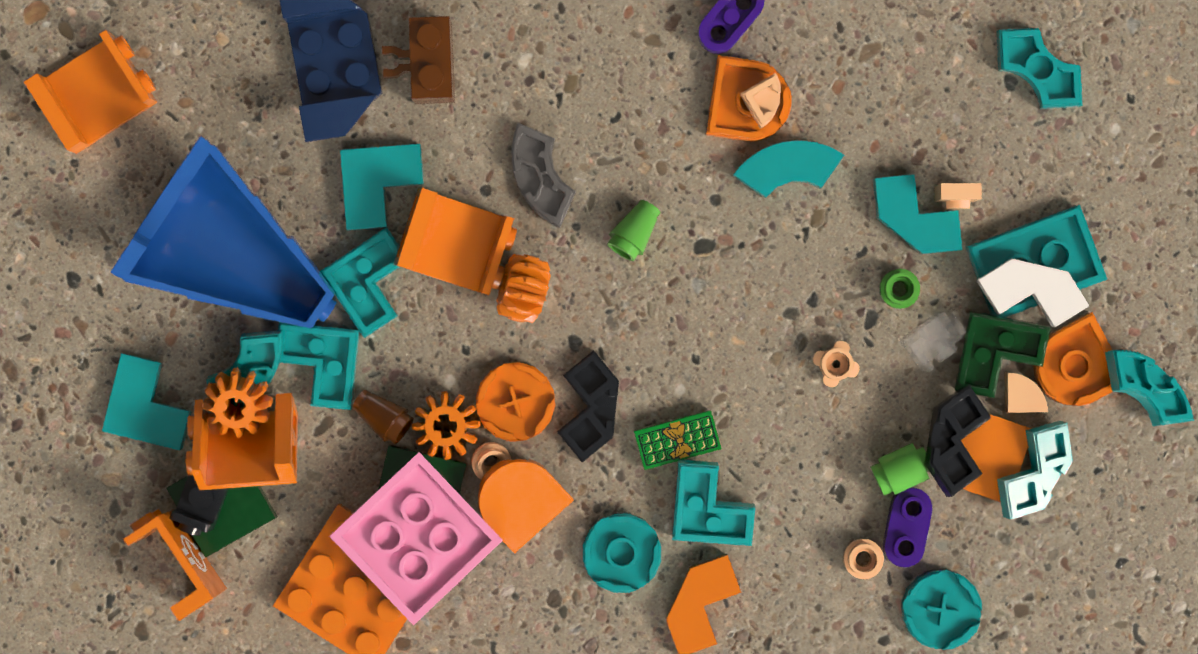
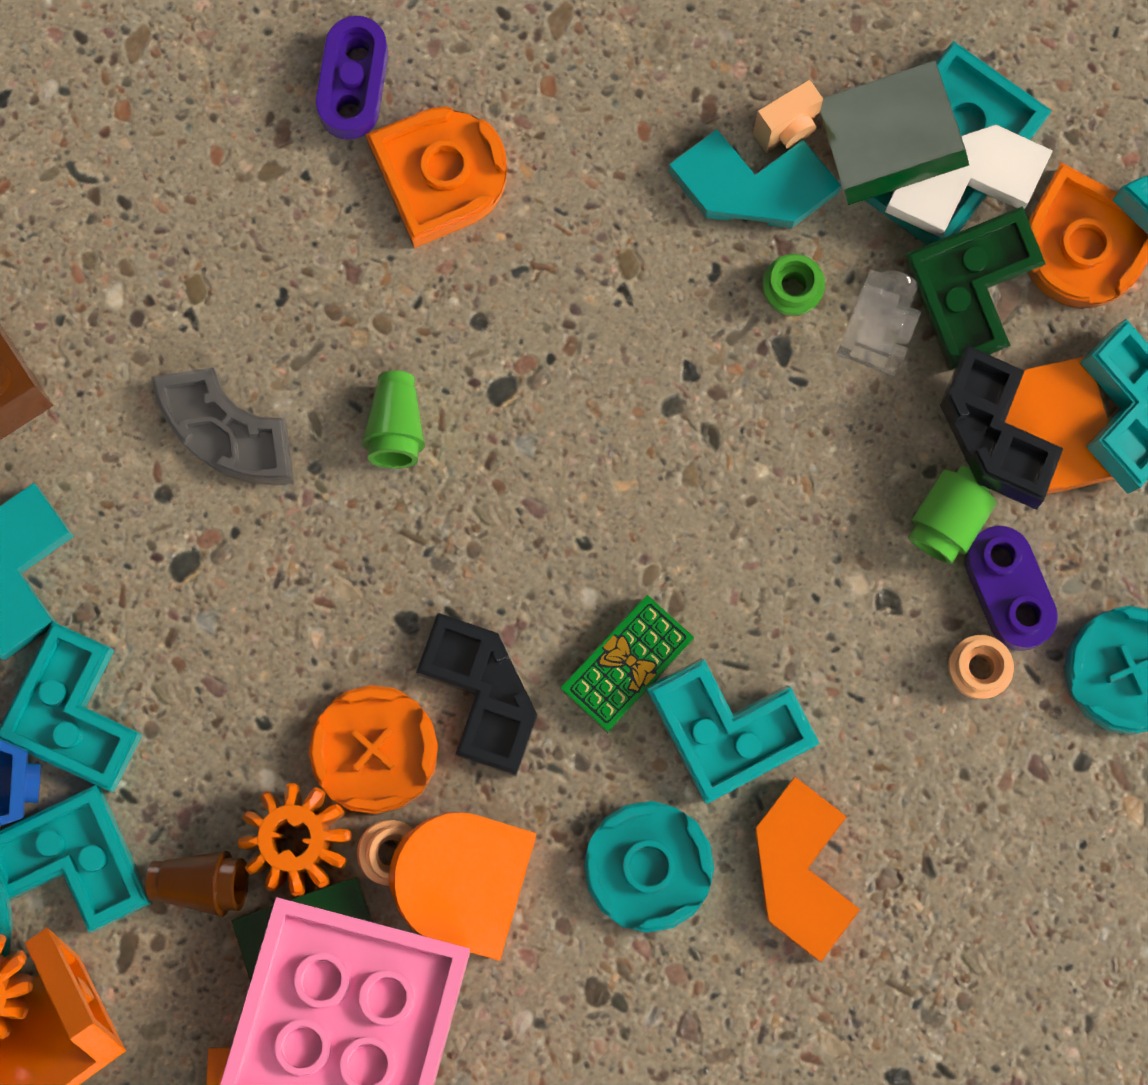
camera: 30 degrees left, 10 degrees down
(455, 242) = (158, 583): orange panel -> none
(523, 288) = (287, 583): orange gear -> none
(763, 99) = (458, 151): light nougat tile -> none
(788, 163) = (545, 216): teal tile -> none
(847, 366) = (779, 415): light nougat plate -> none
(1008, 240) = (893, 133): none -> tile
(1023, 395) = (1044, 322): light nougat tile -> none

